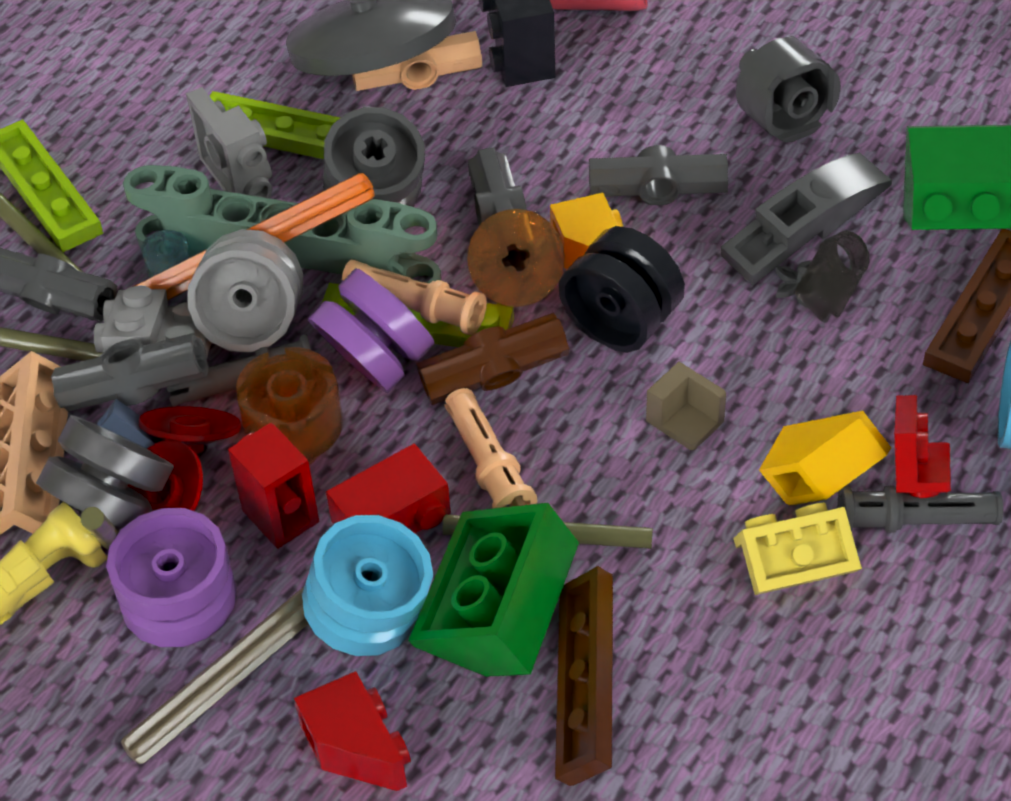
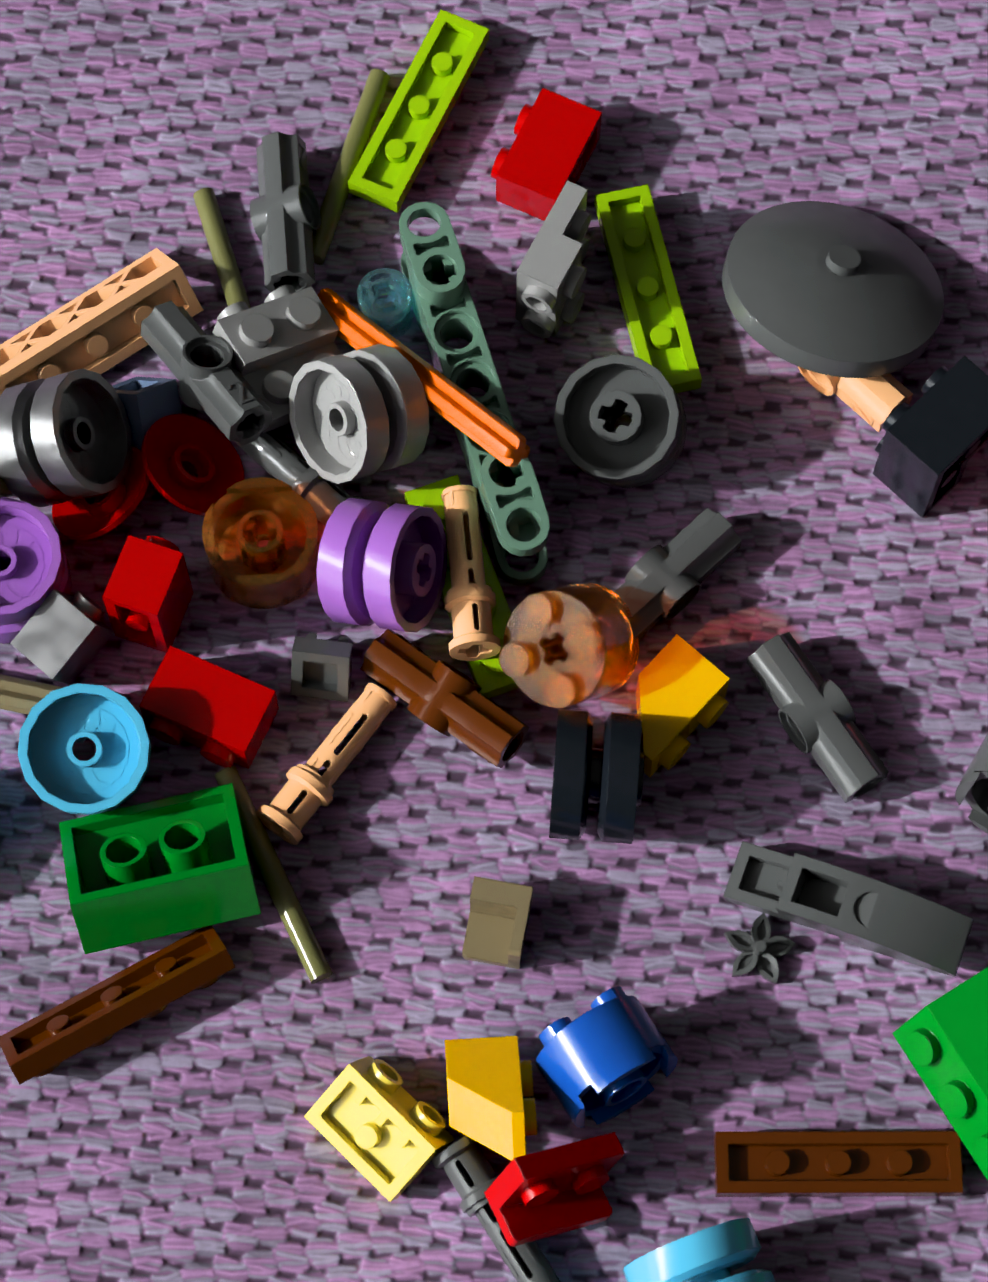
camera: 55 degrees right, 20 degrees up
(141, 129) = (549, 149): none -> red brick
(258, 563) = (63, 635): none -> flat silver brick
(412, 419) = (321, 668): none -> dark grey tile
(827, 280) = (761, 978): clear smoke piece -> none
(834, 373) = (603, 1058): none -> blue brick

